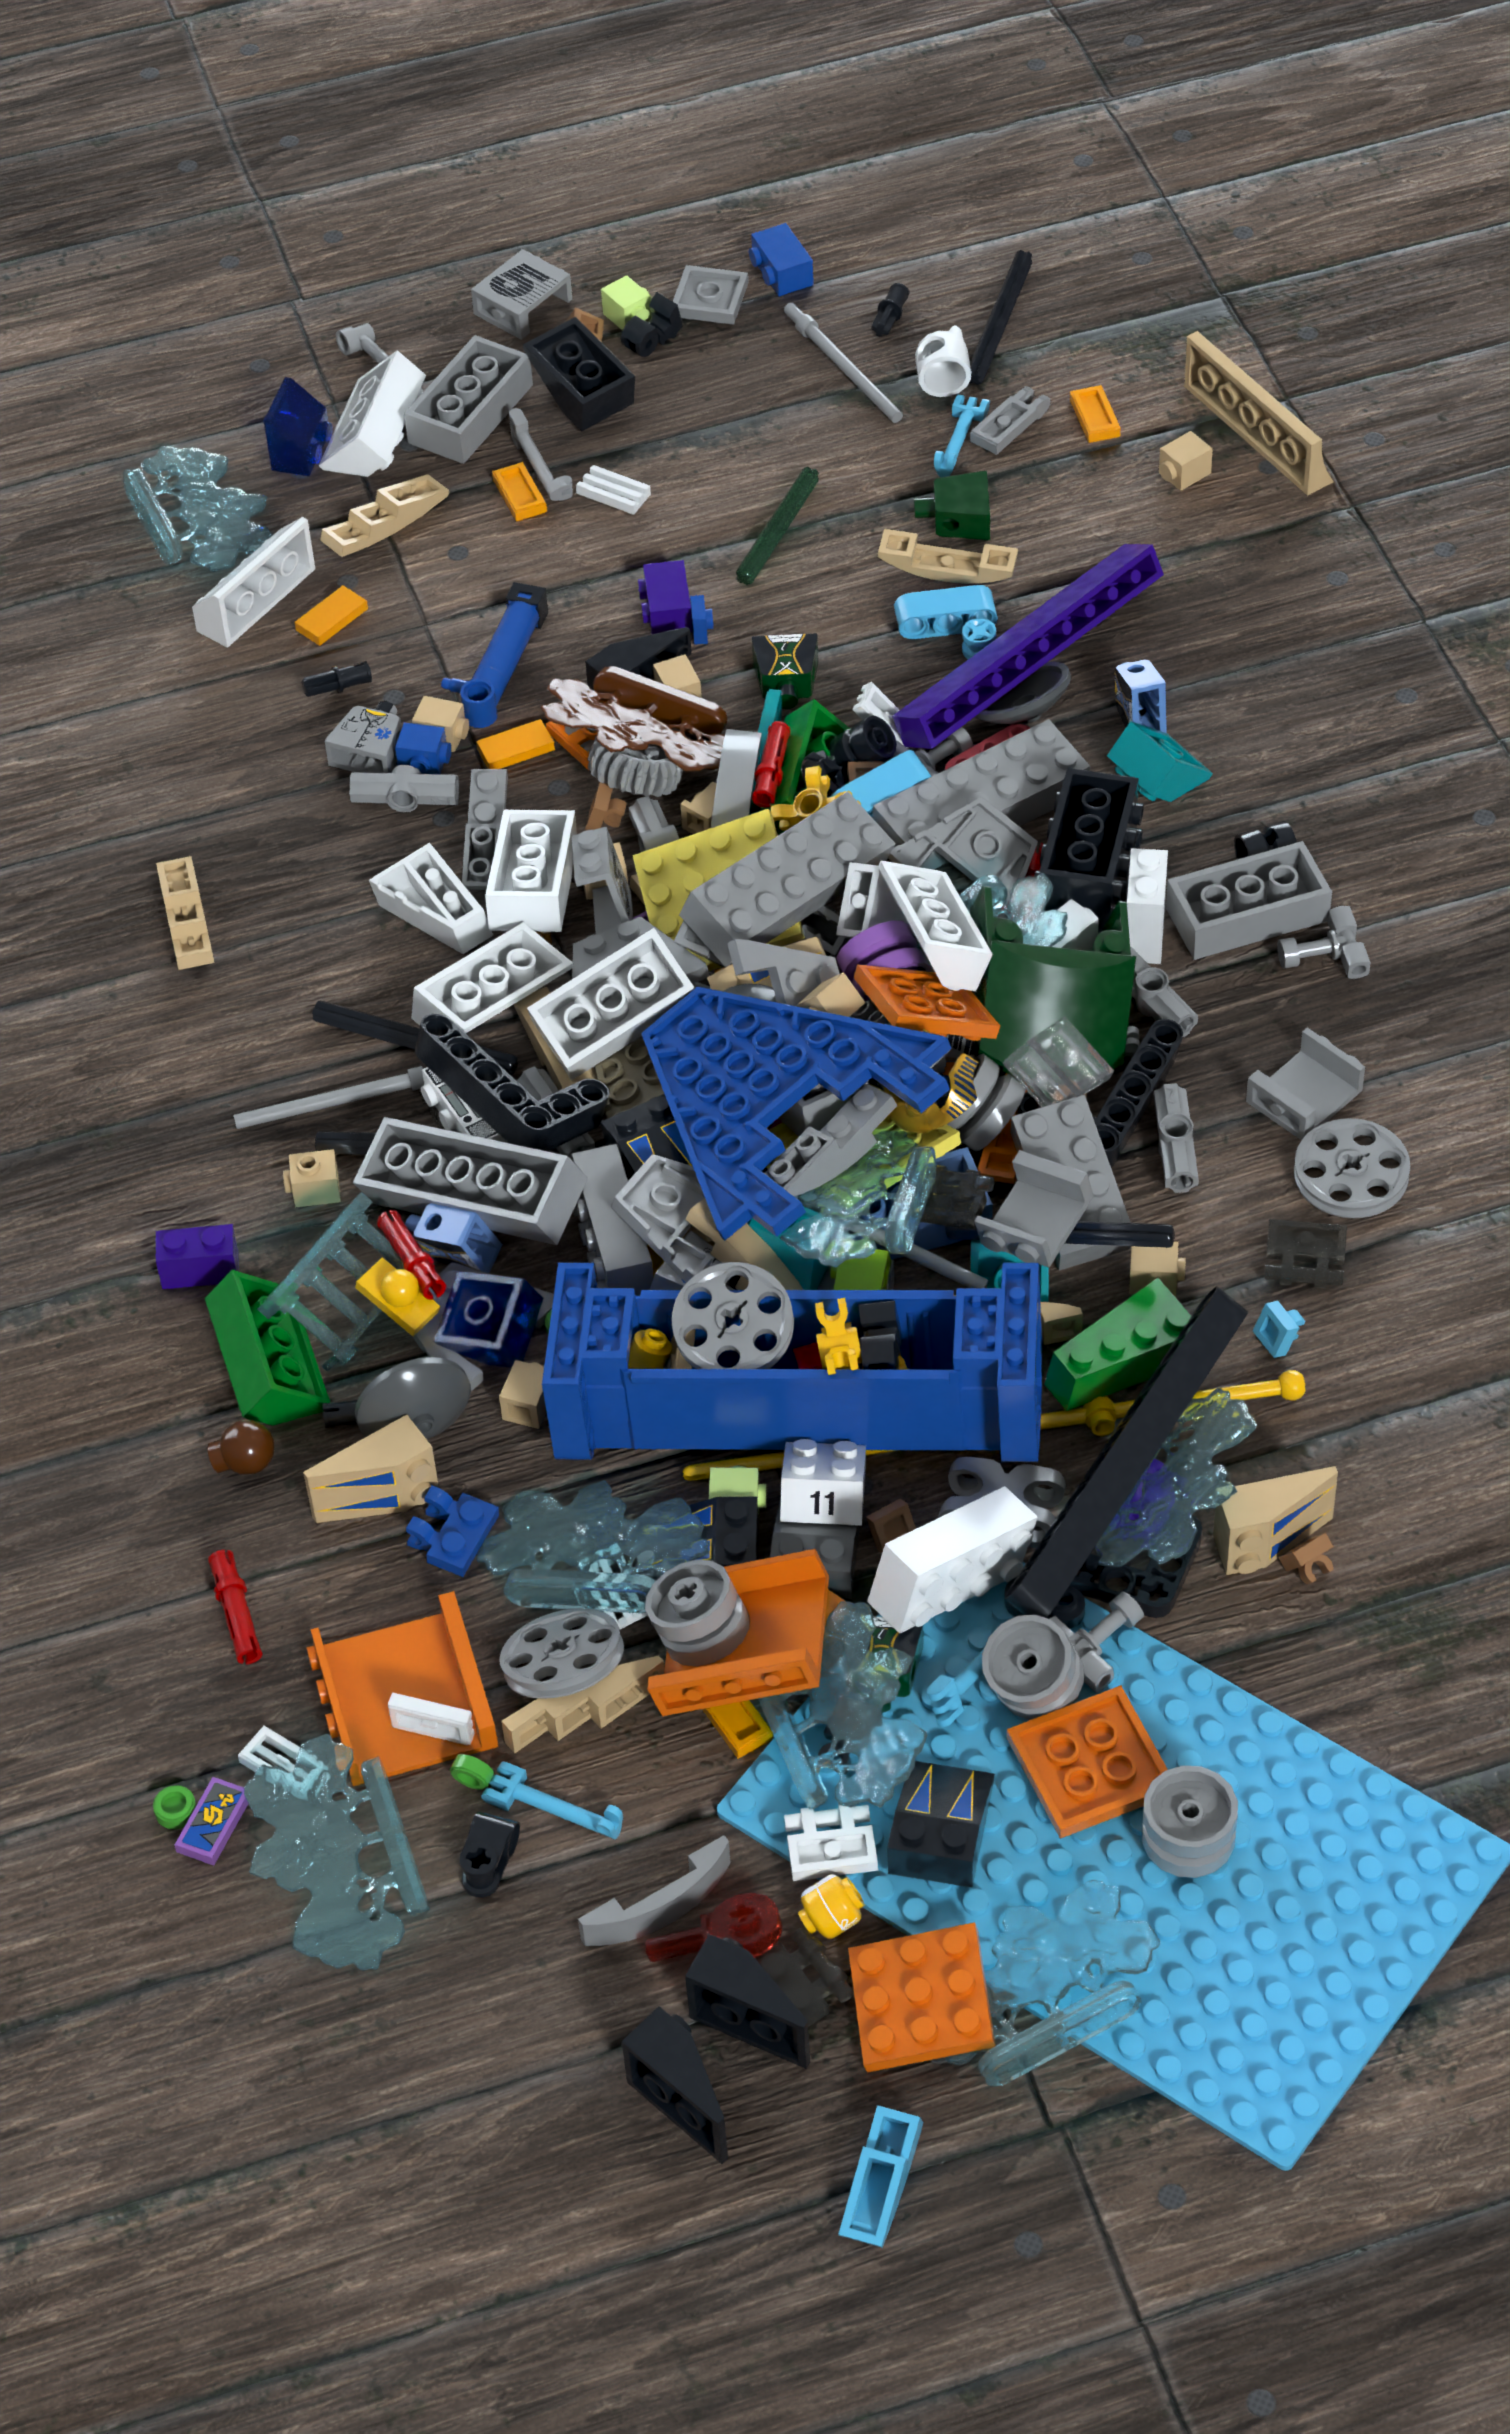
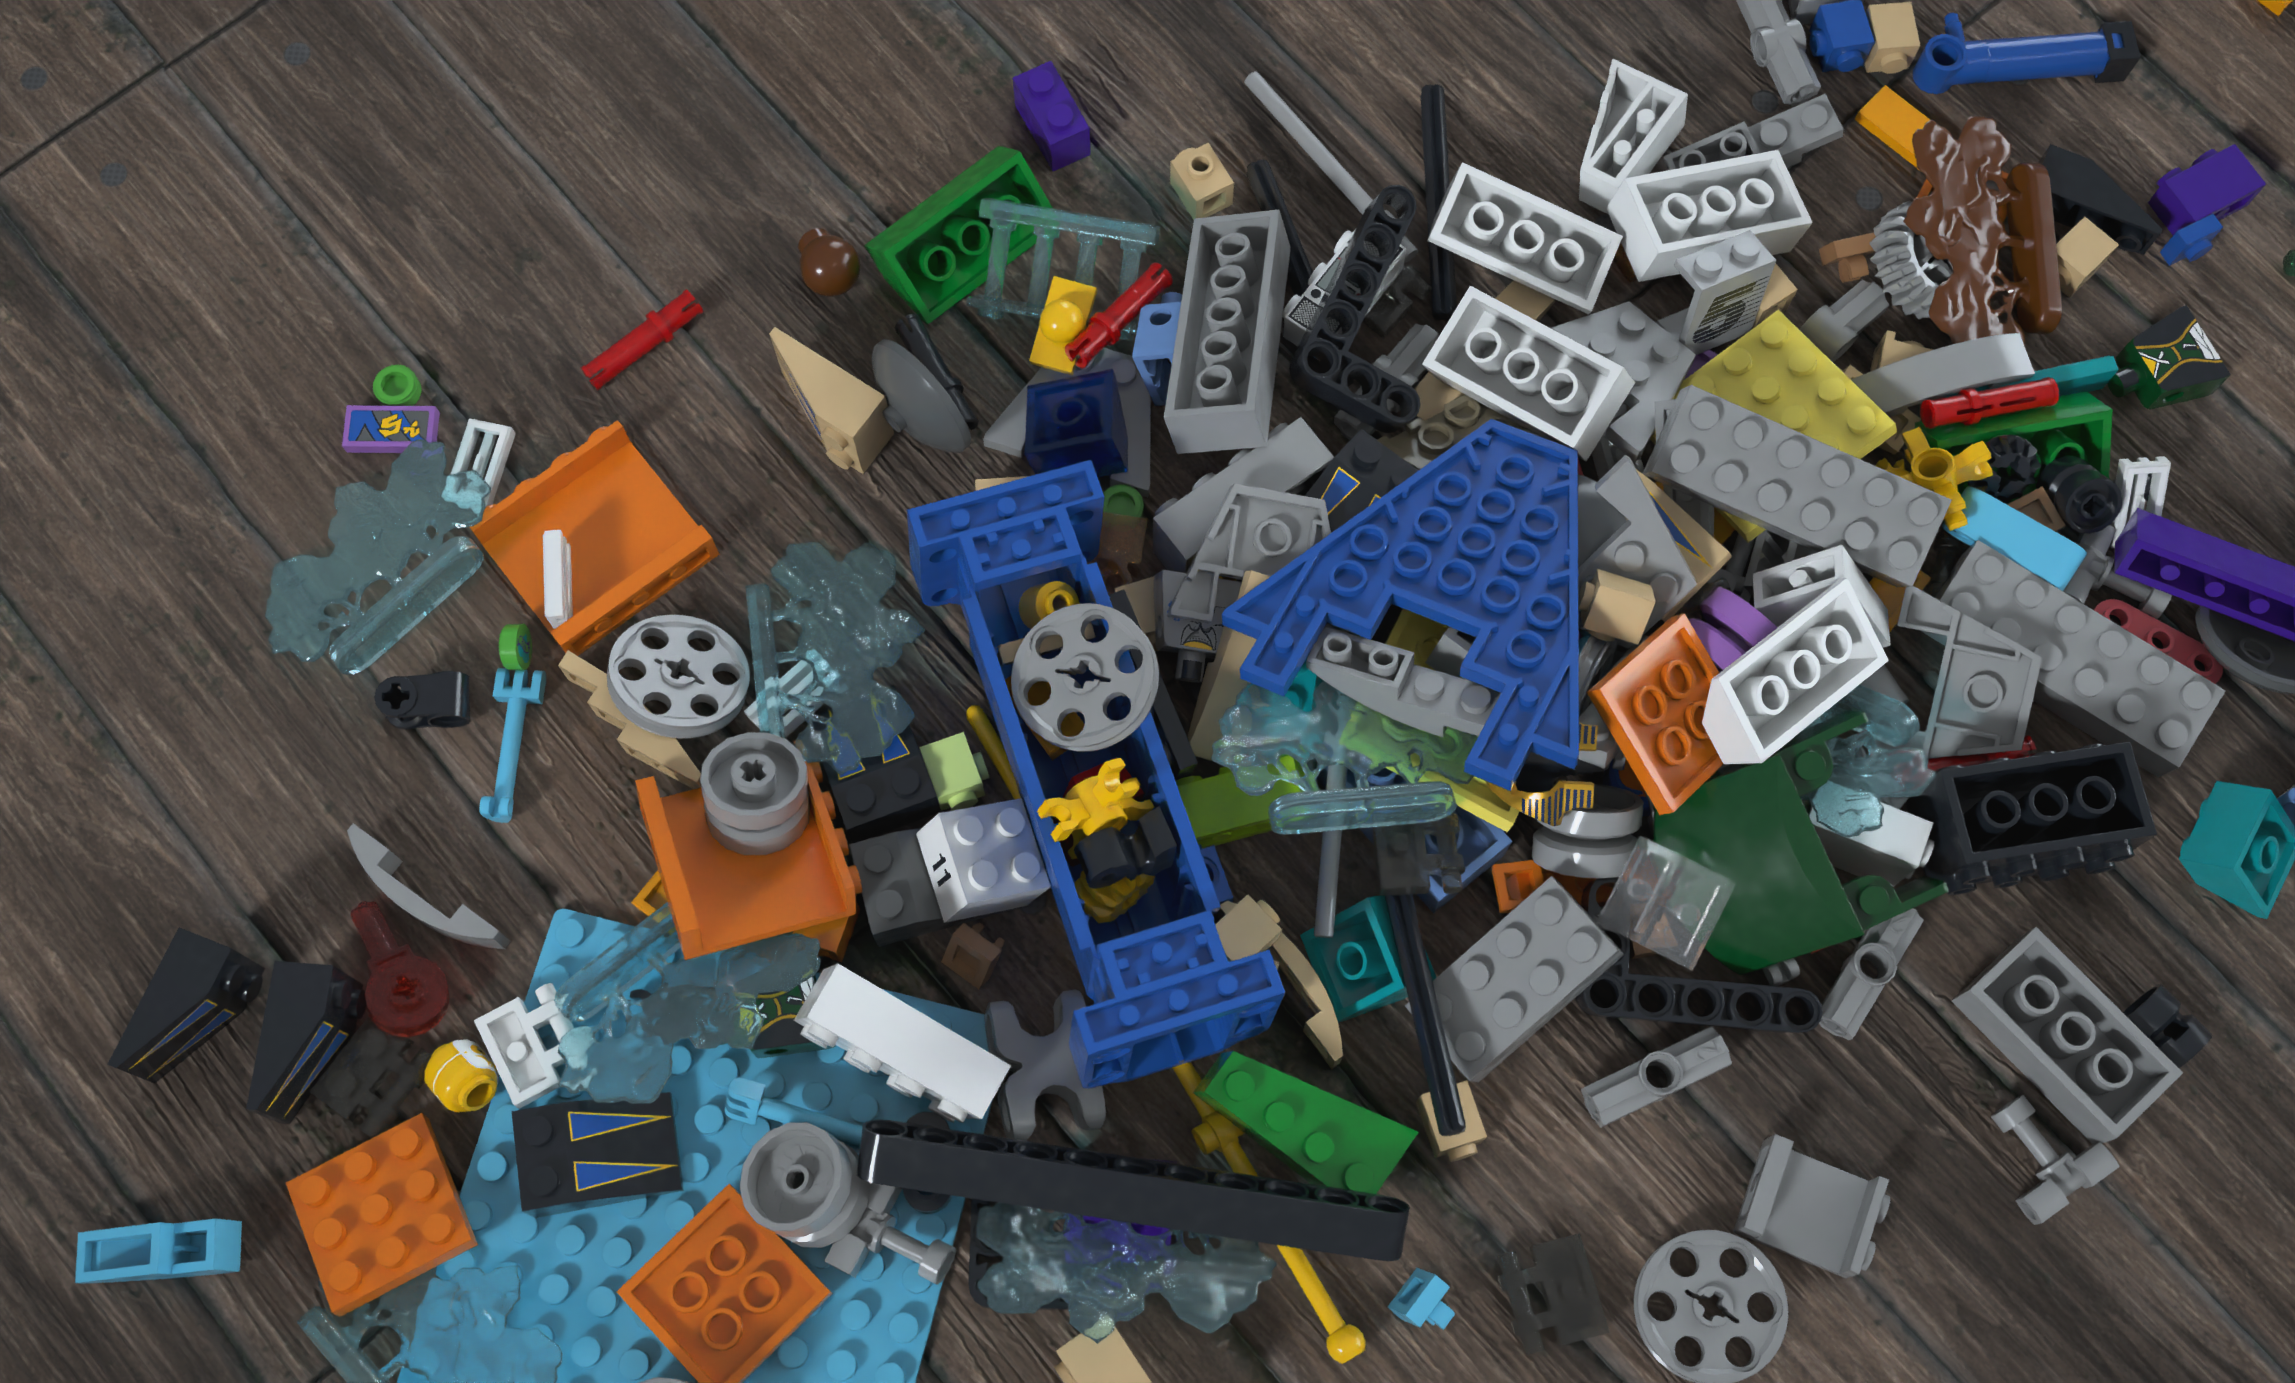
camera: 65 degrees right, 20 degrees up
(461, 1535) = (811, 516): blue plate -> none
(1037, 1210) = (1419, 958): light grey panel -> none
(1147, 902) = (1986, 914): white brick -> none

